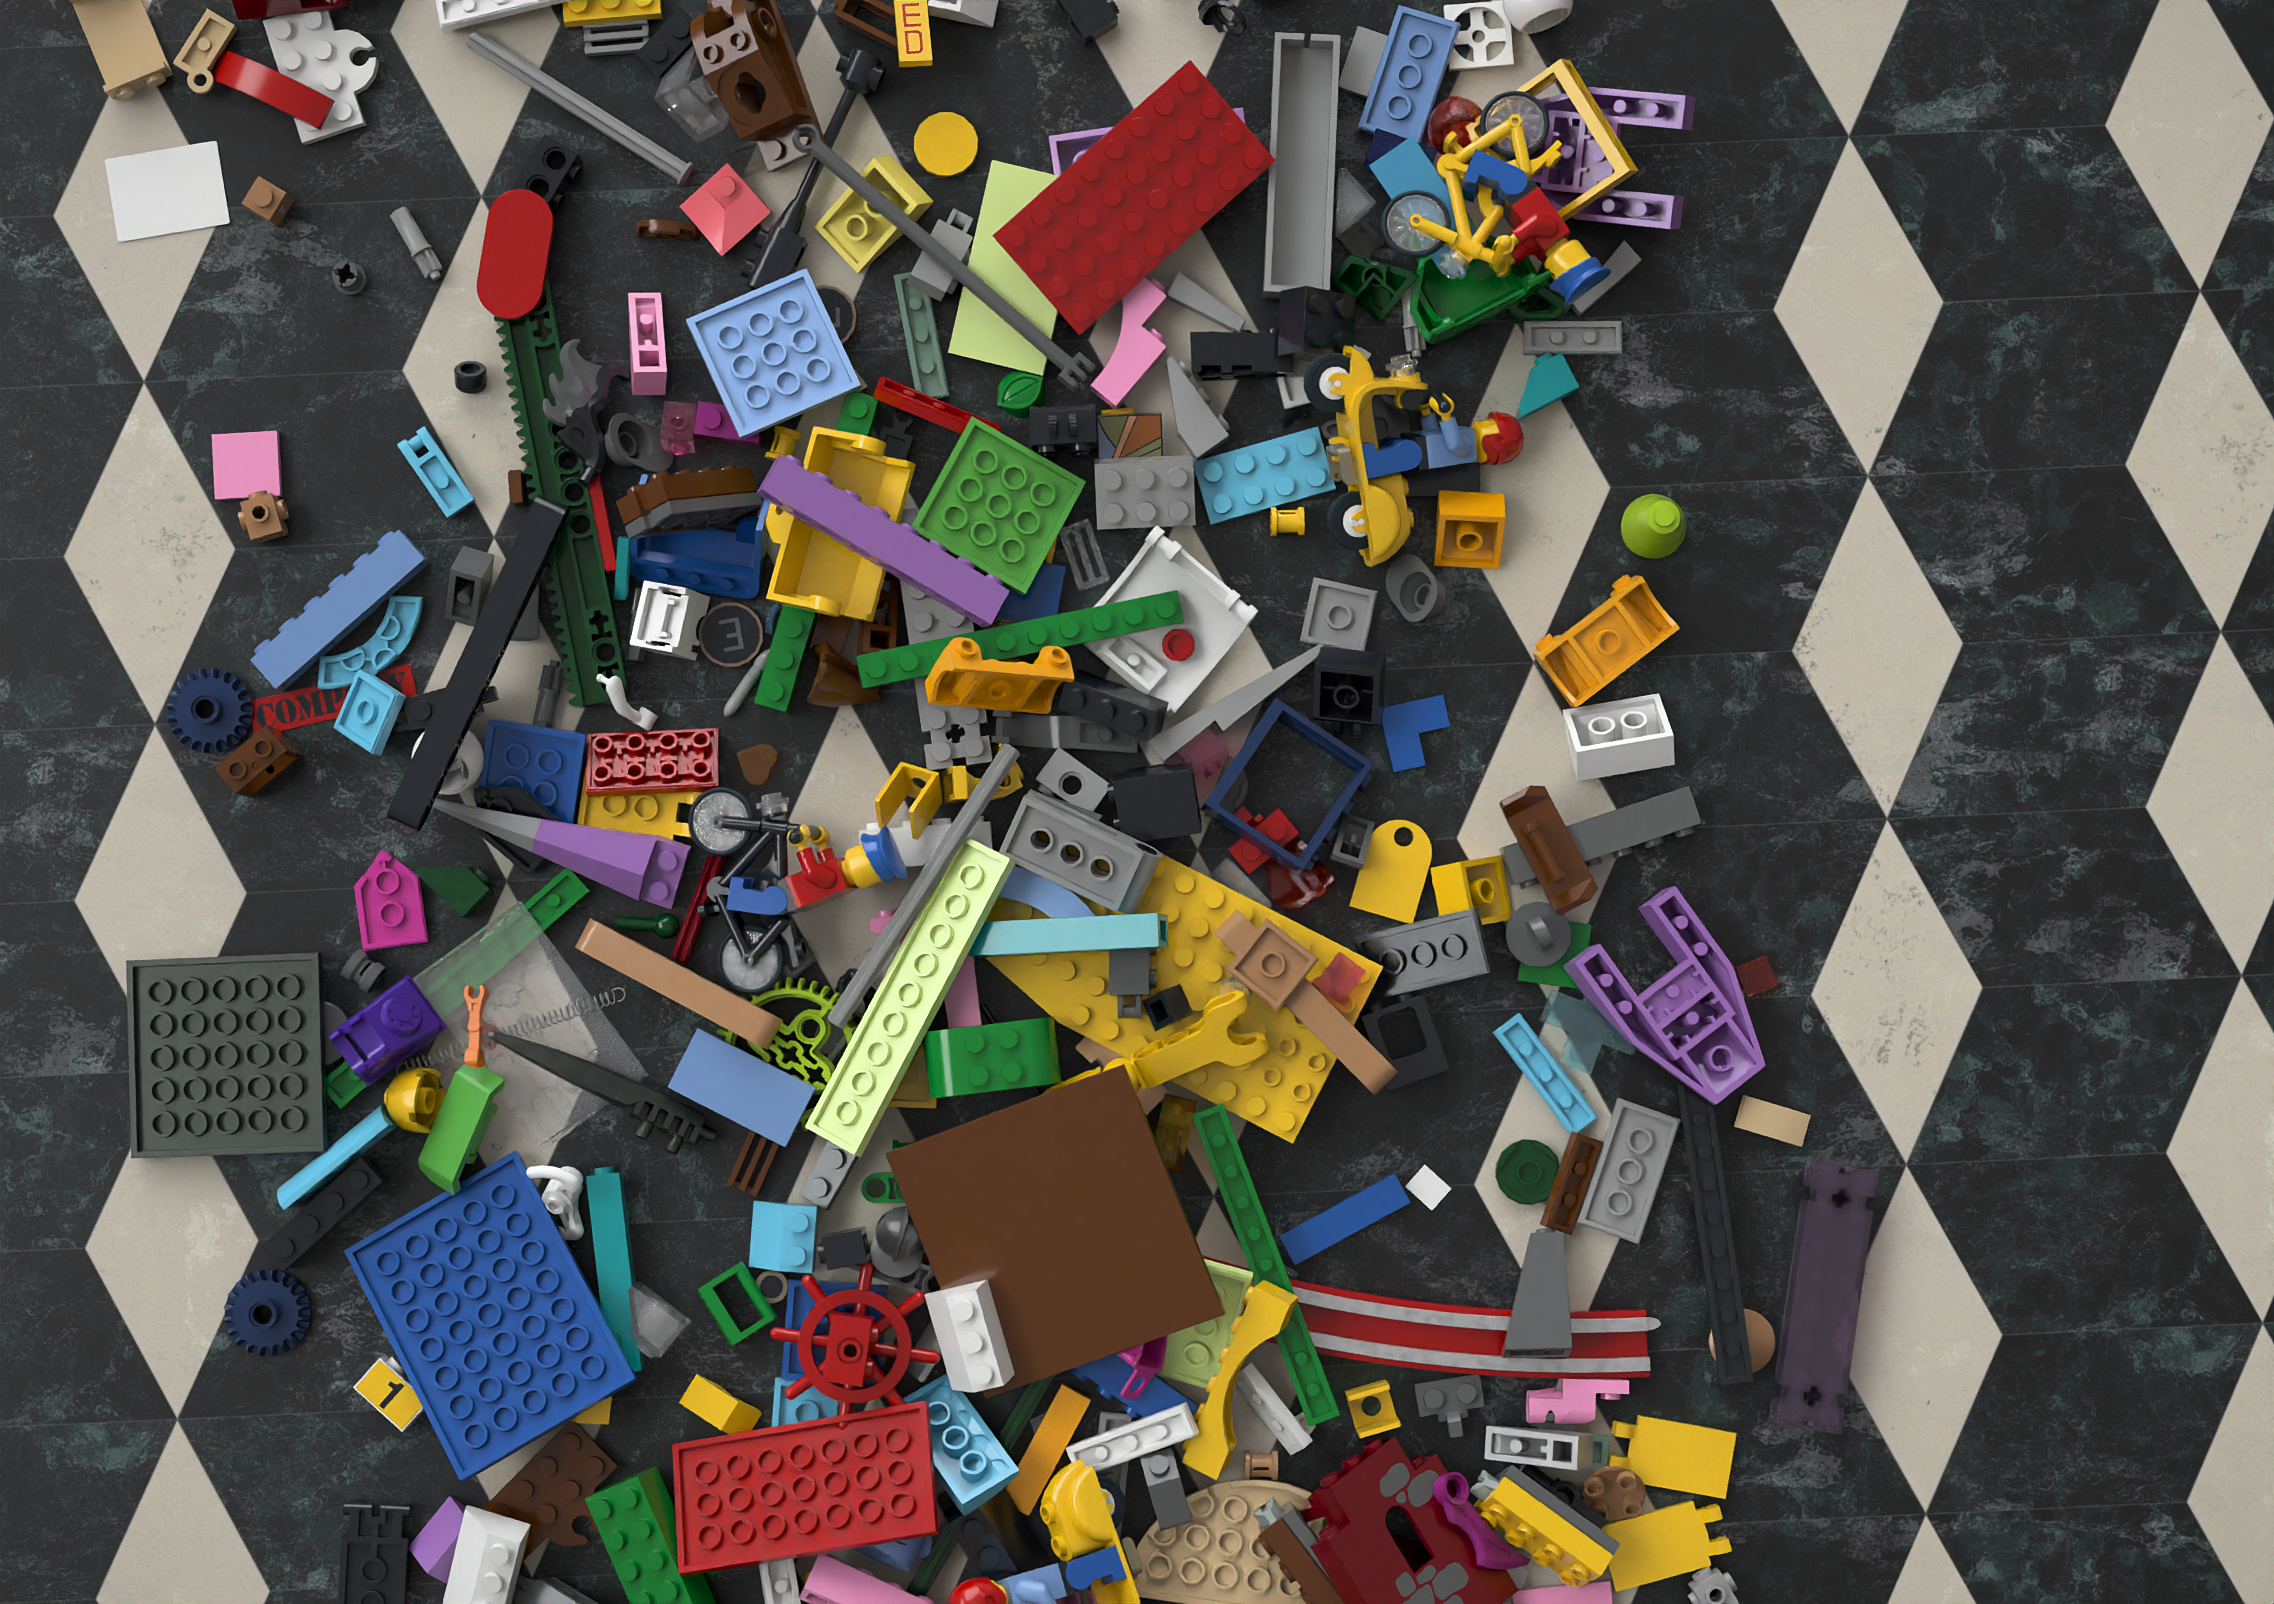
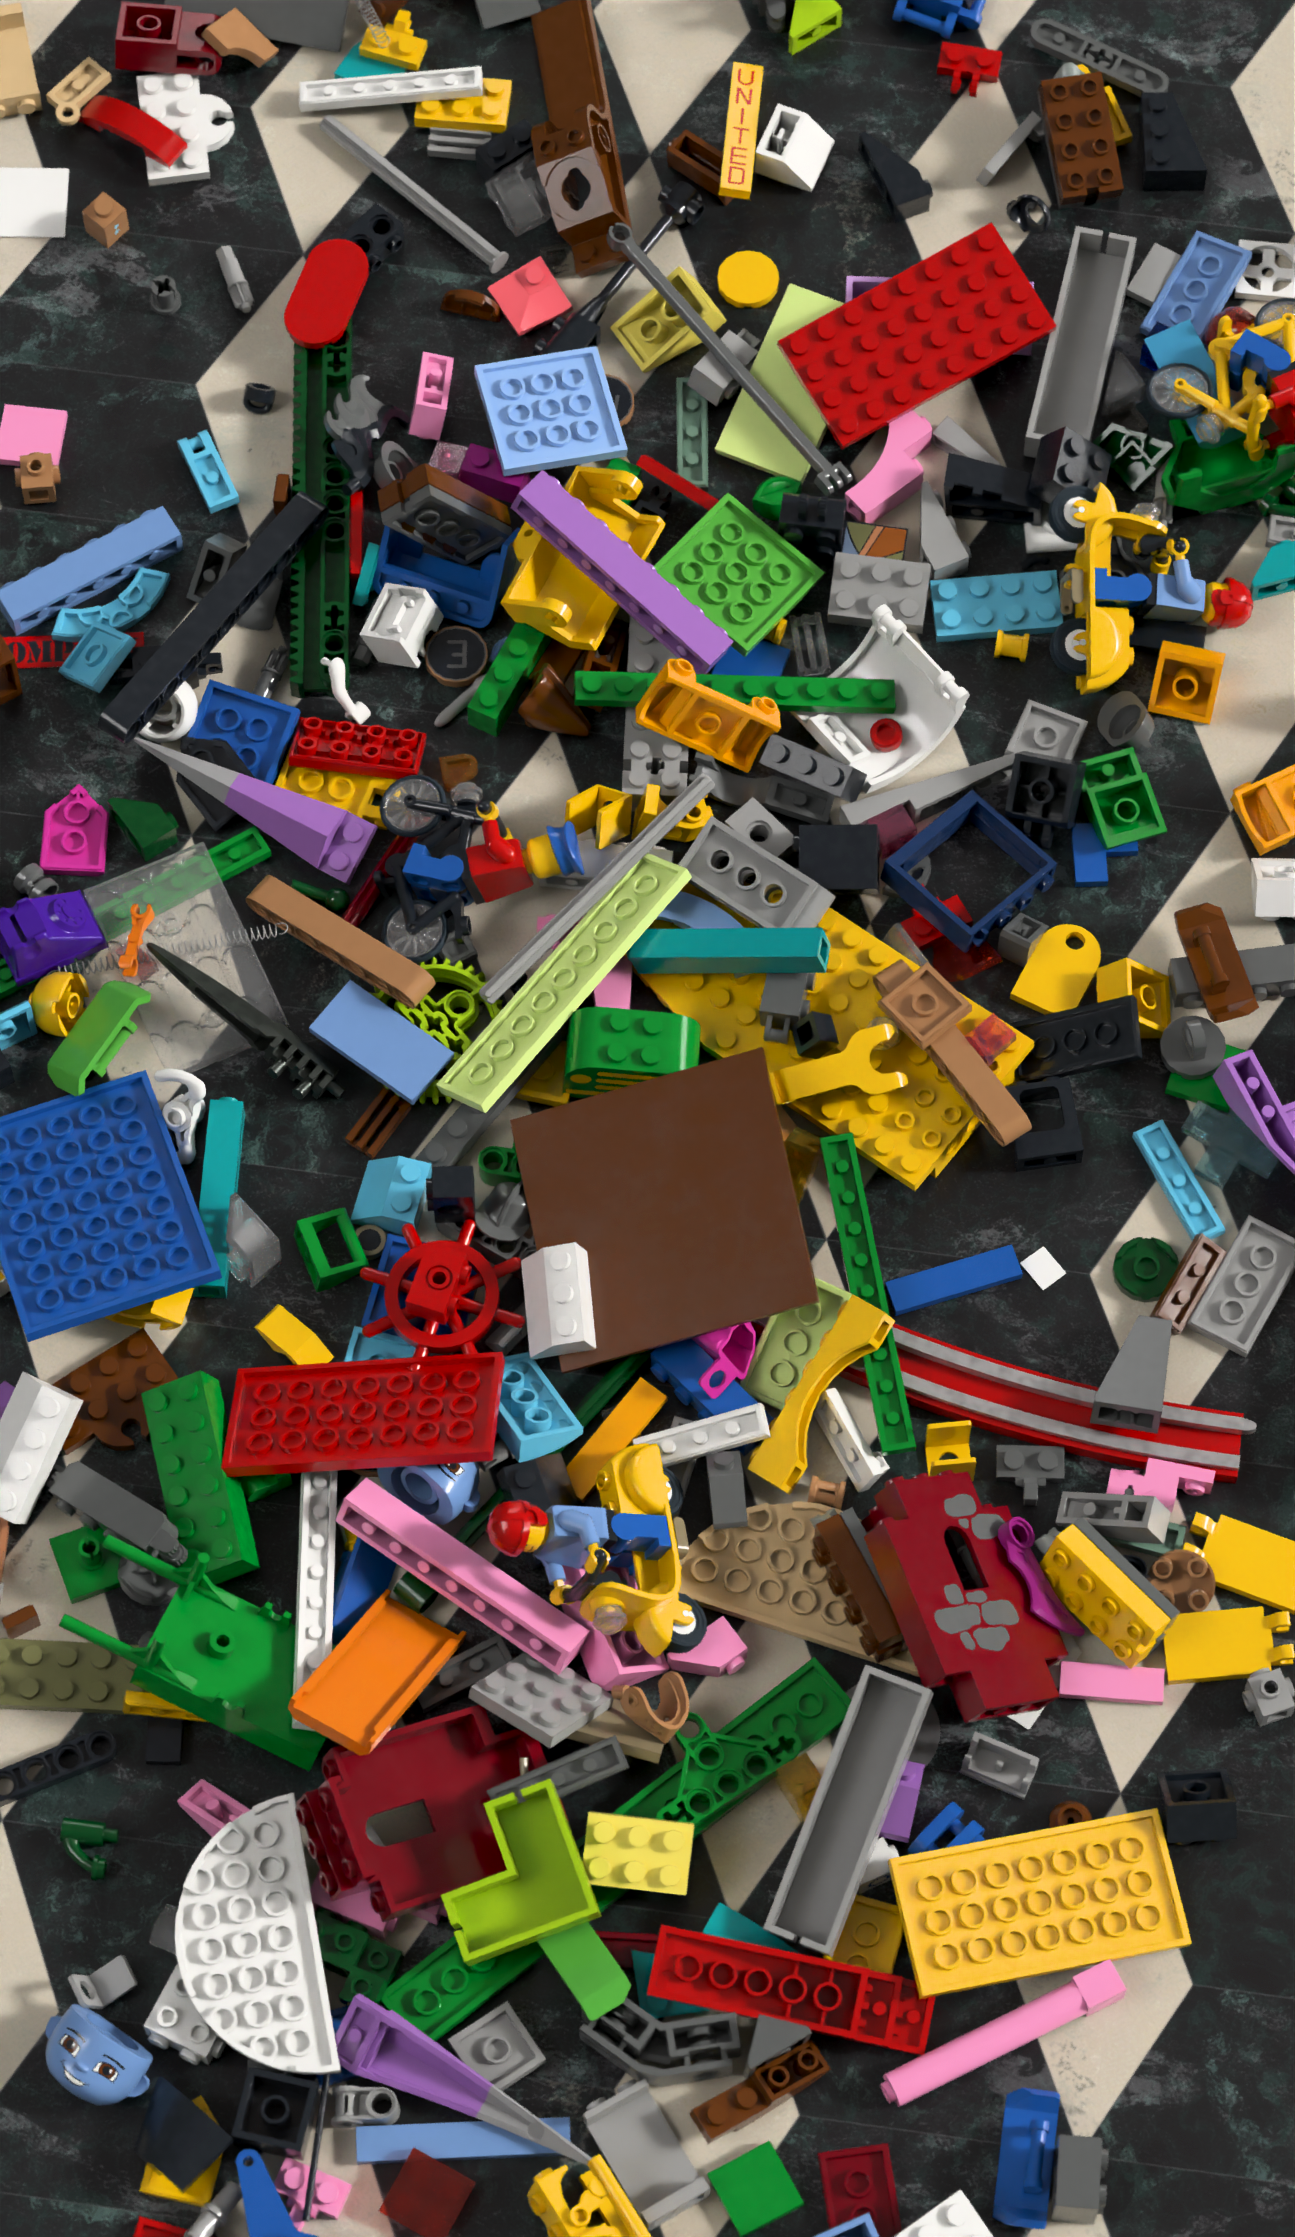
camera: 15 degrees right, 20 degrees down
(1423, 676) = (1120, 800): none -> green slope

